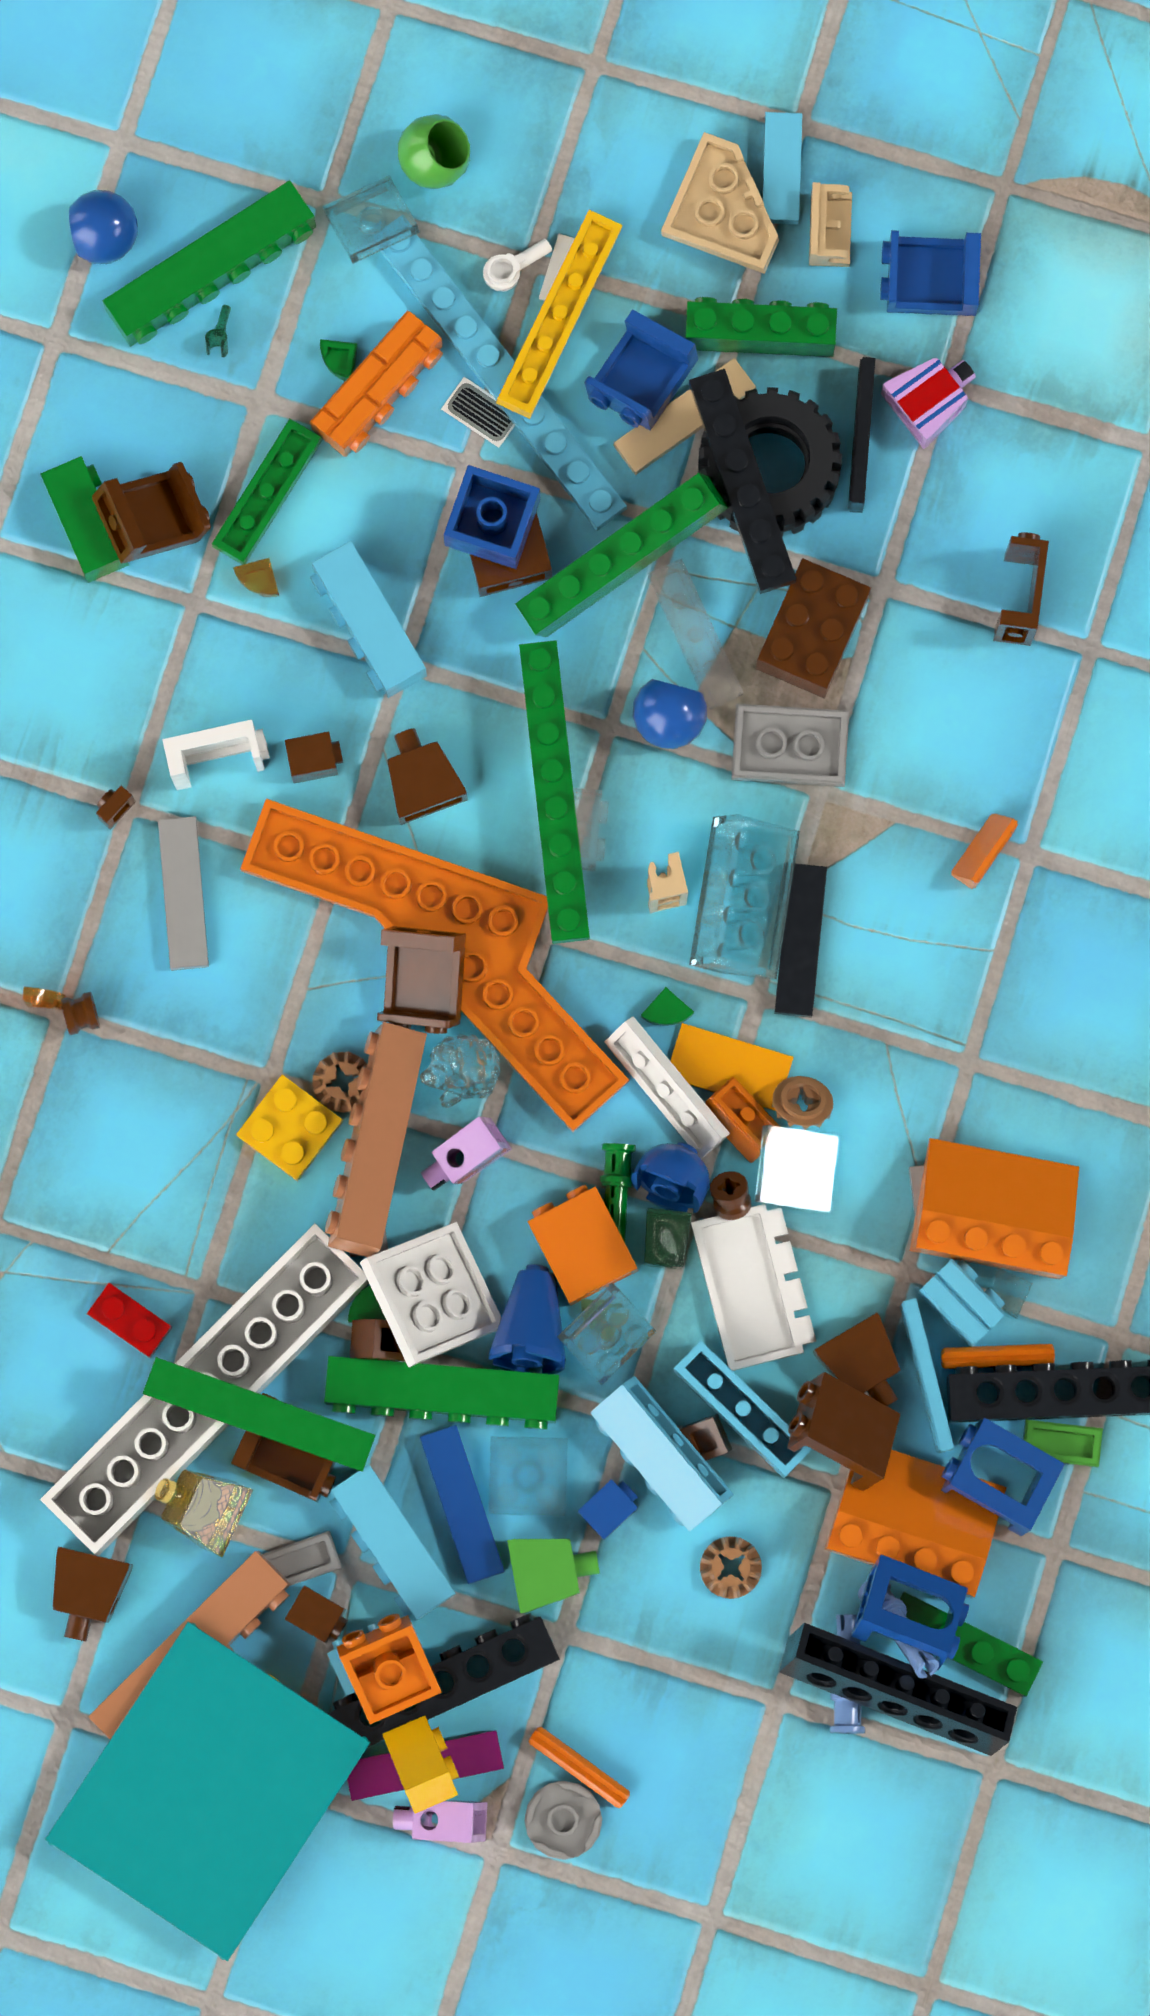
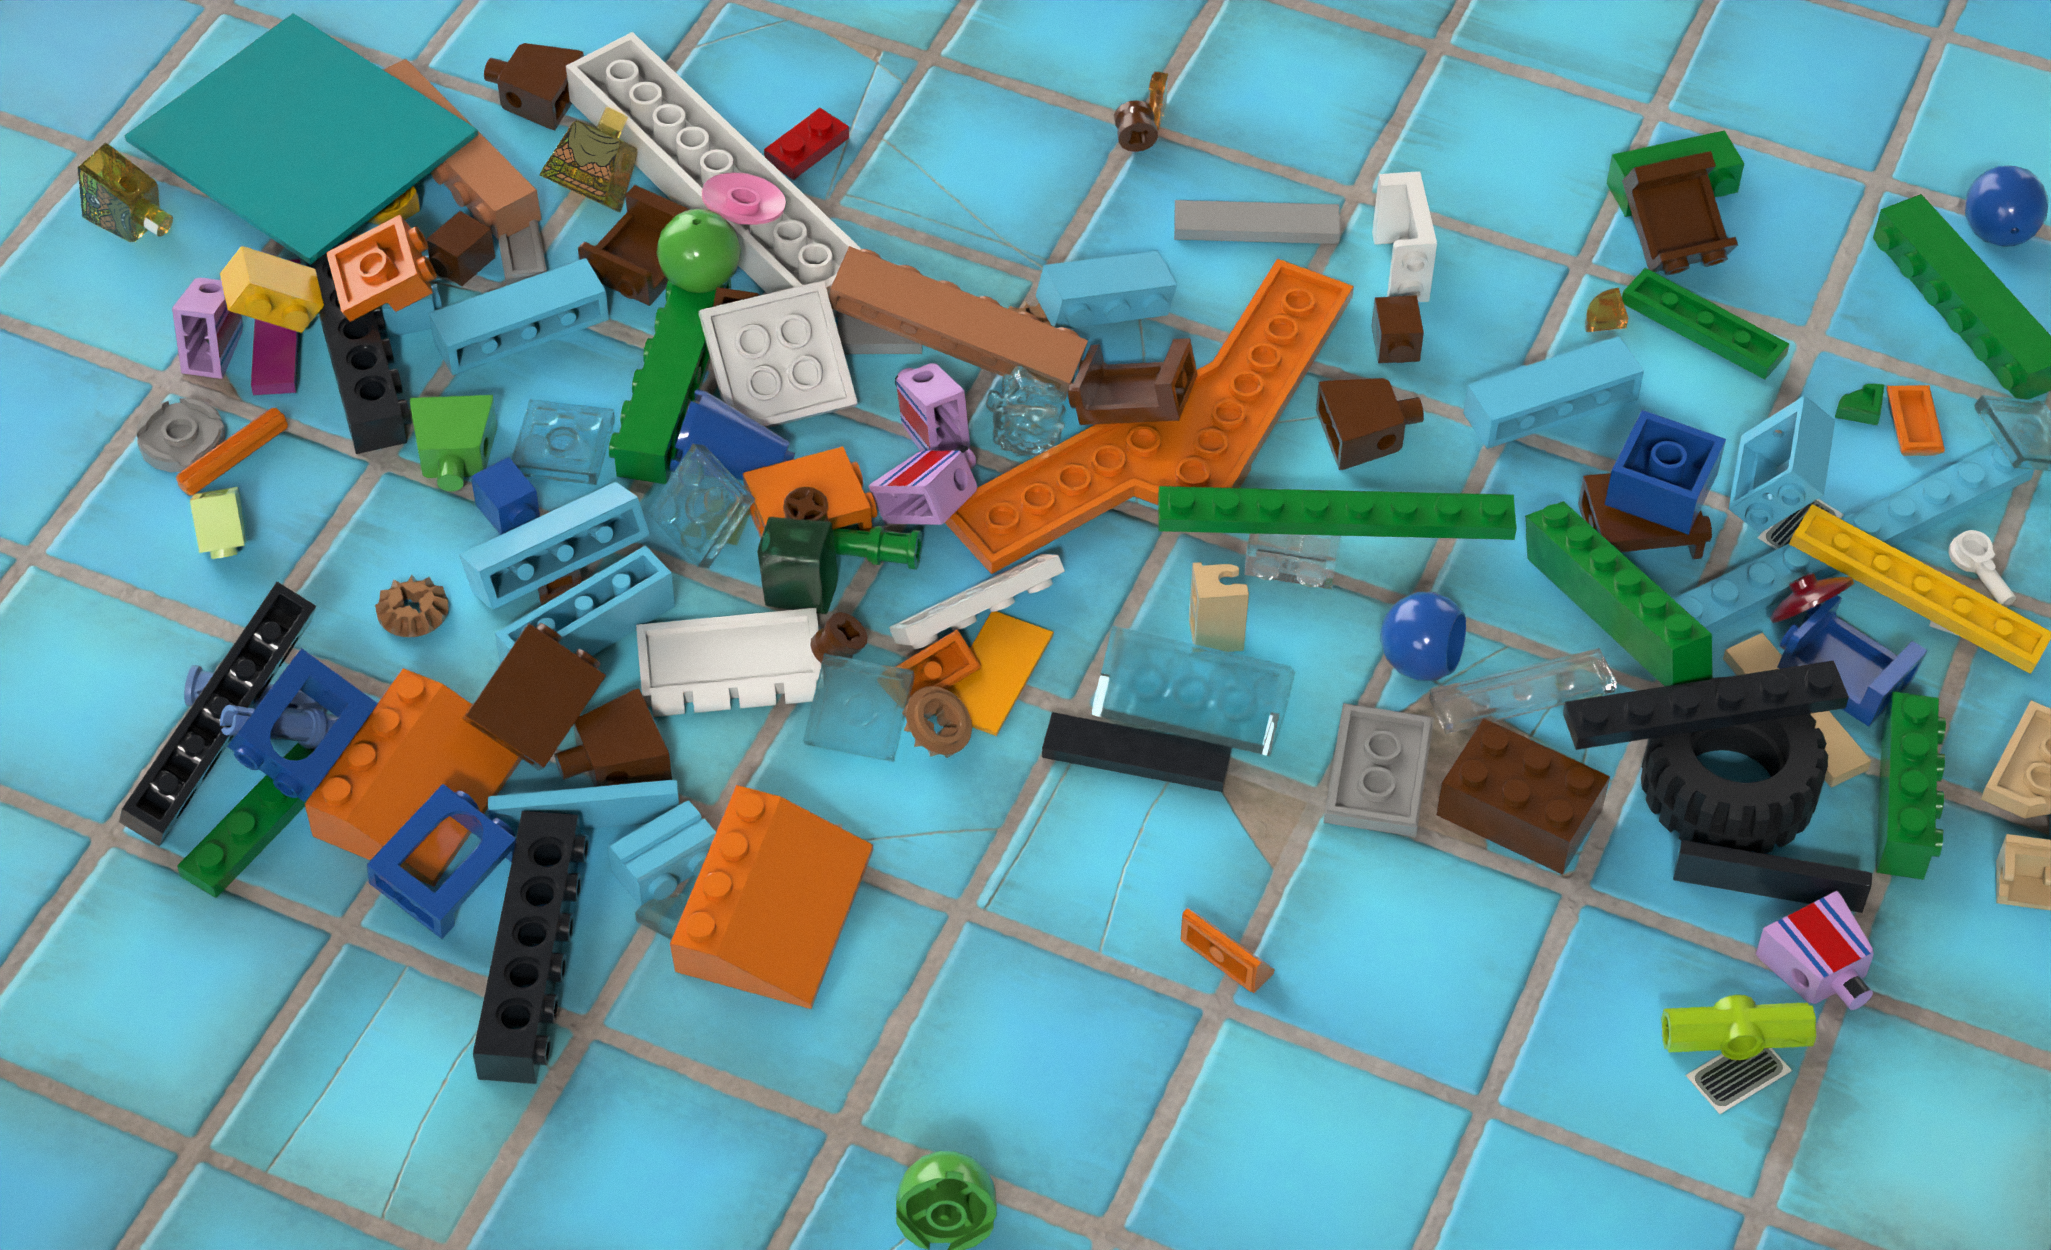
camera: 95 degrees right, 30 degrees down
(114, 806) = (1355, 170): reddish brown plate -> none
(218, 336) = (1882, 296): clear green hand -> none
(258, 1338) = (743, 198): none -> bright pink dish
(259, 1414) = (676, 192): green tile -> none
(289, 1127) = (992, 272): yellow plate -> none
(293, 1957) = (120, 196): none -> clear yellow torso
(307, 1014) = (1106, 290): none -> medium azure brick
(347, 1390) = (698, 251): none -> bright green helmet
(355, 314) = (1915, 420): none -> orange tile
(377, 383) = (1861, 442): orange brick -> none
(449, 447) = (1806, 440): none -> medium azure window
(462, 1504) = (552, 381): blue tile -> none
(559, 1142) = (926, 487): none -> lavender torso
(587, 400) = (1808, 593): none -> dark red dish
(626, 1228) = (804, 503): none -> reddish brown wheel
(663, 1756) = (218, 522): none -> yellowish green slope
(667, 1010) = (1071, 616): green tile -> none
(673, 1177) = (873, 585): blue cylinder -> none
(932, 275) = (1988, 977): blue panel -> none
(997, 1355) = (592, 891): orange axle -> none
(1006, 460) = (1738, 1027): none -> lime piece
(1021, 626) = (1560, 1020): reddish brown panel -> none
(1034, 461) = (1731, 1081): none -> sticker
(1065, 1442) = (469, 947): bright green tile -> none

